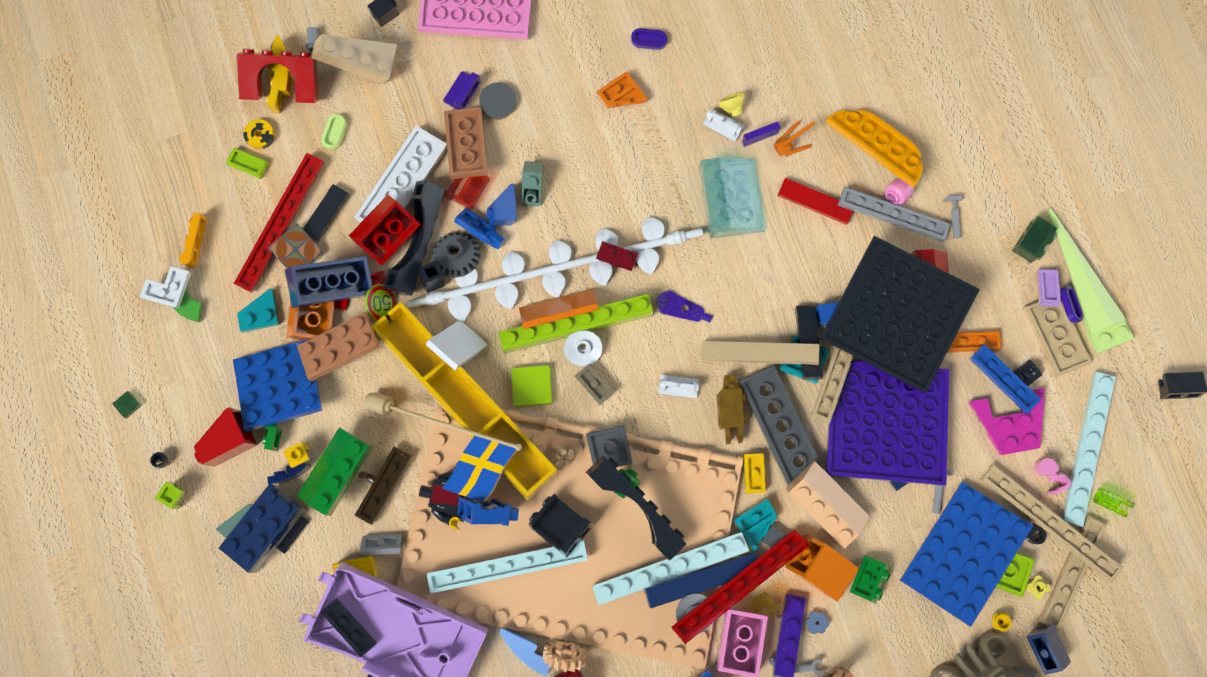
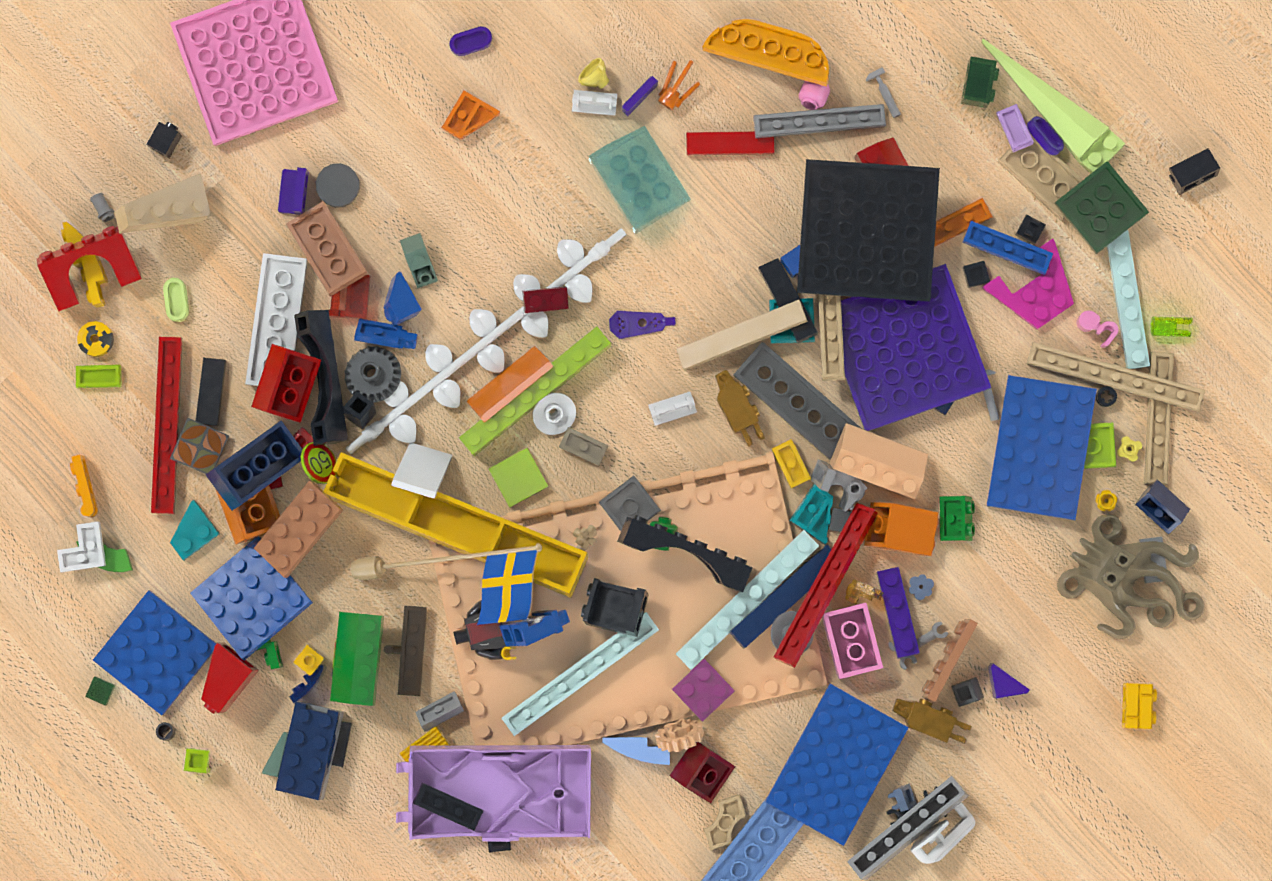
camera: 25 degrees left, 5 degrees up
(183, 394) = (155, 652): none -> blue plate
(601, 626) = (703, 690): none -> magenta plate
(779, 497) = (825, 476): none -> light grey tile
(968, 389) = (976, 274): none -> black tile
(1096, 380) = (1101, 207): none -> dark green plate

